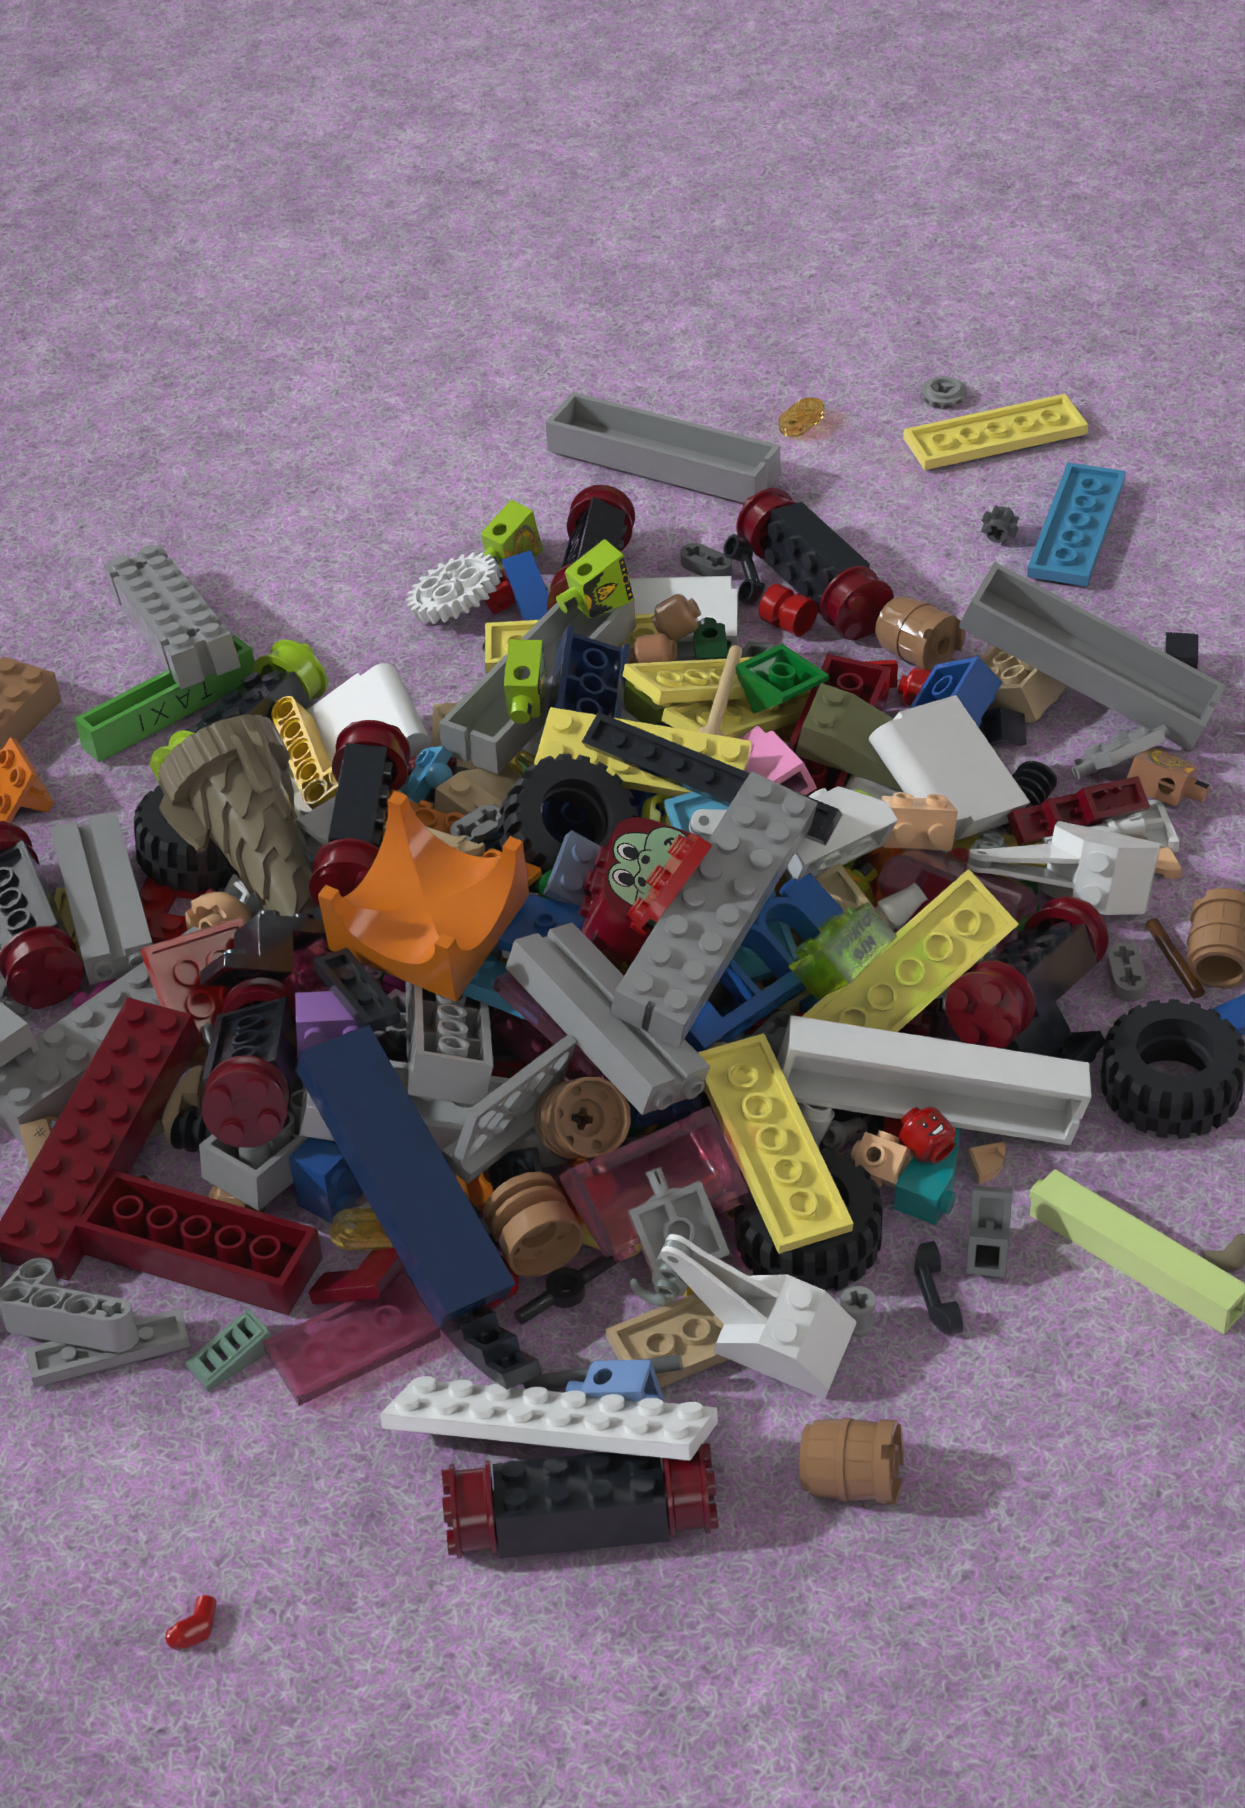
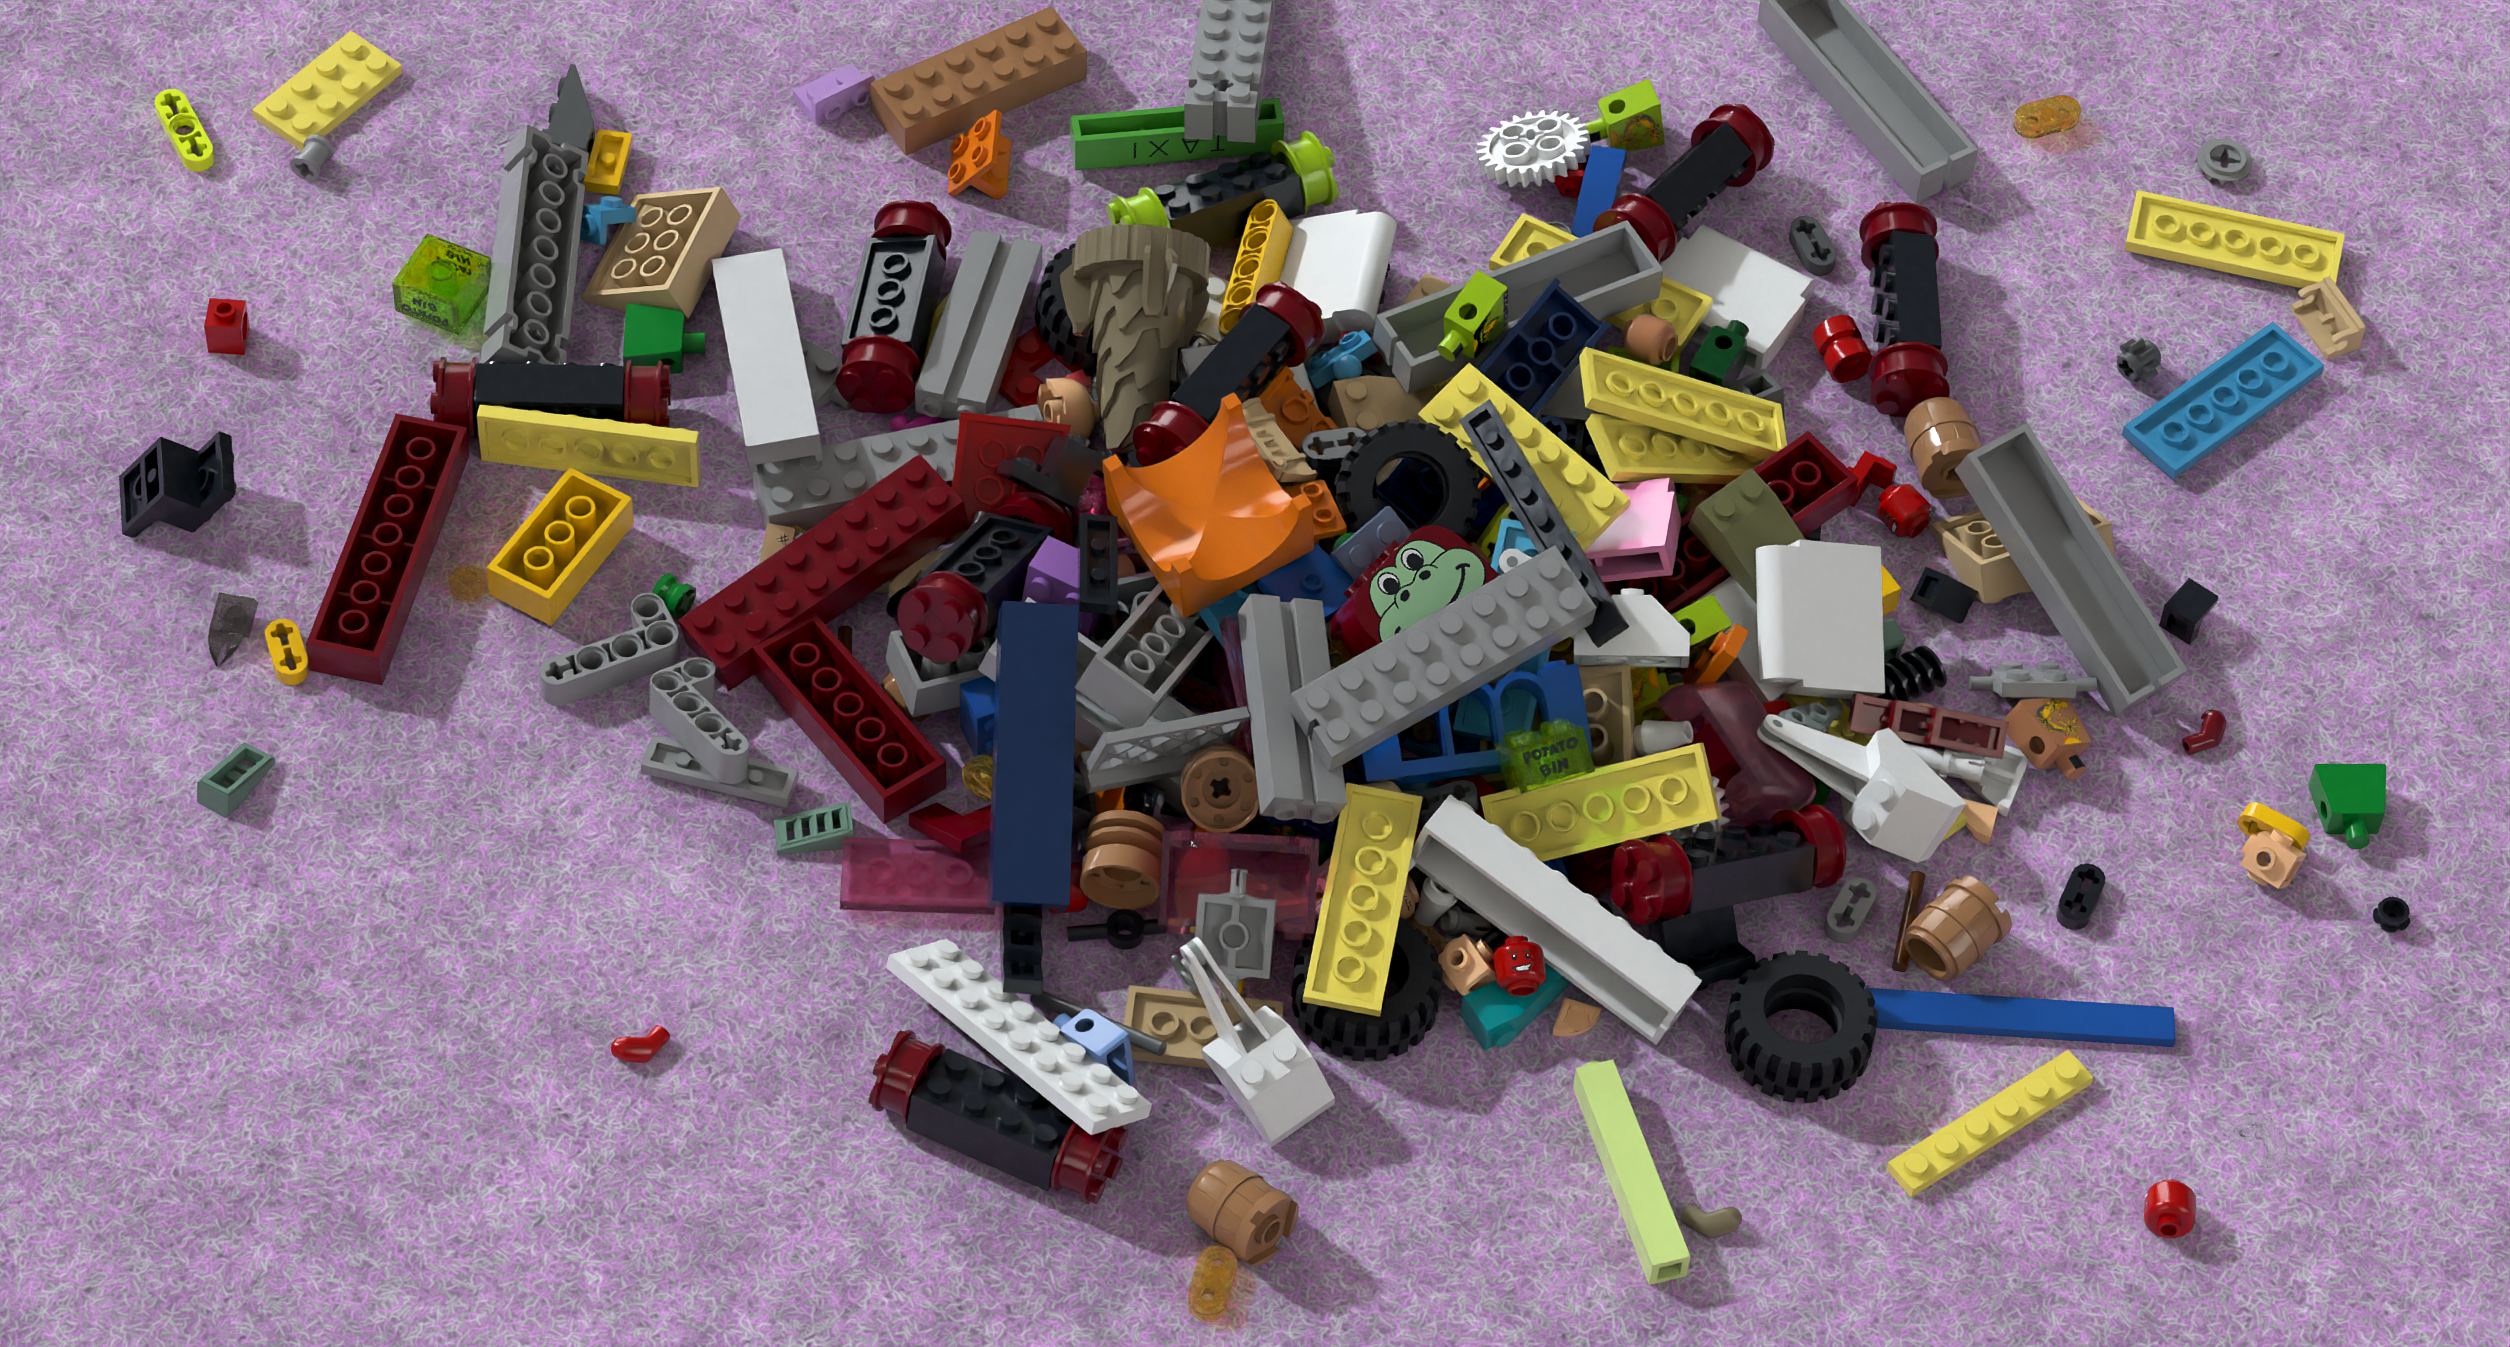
camera: 25 degrees right, 10 degrees up
(597, 582) = (1625, 240): lime torso -> none
(668, 880) = (1412, 611): red plate -> none
(676, 617) = (1699, 309): medium nougat head -> none
(723, 692) = (1611, 466): tan piece -> none
(740, 549) = (1848, 251): black bar -> none
(777, 677) = (1730, 434): green slope -> none
(859, 1304) = (1350, 1087): light grey bush -> none
(869, 1537) = (1214, 1281): none -> clear yellow plate
(922, 822) = (1739, 660): light nougat bracket -> none
(944, 1316) = (1443, 1078): black bar -> none
(967, 679) = (1914, 539): blue brick -> none
(989, 1231) = (1515, 1086): dark grey brick -> none
(1101, 444) = (2329, 319): none -> tan hinge

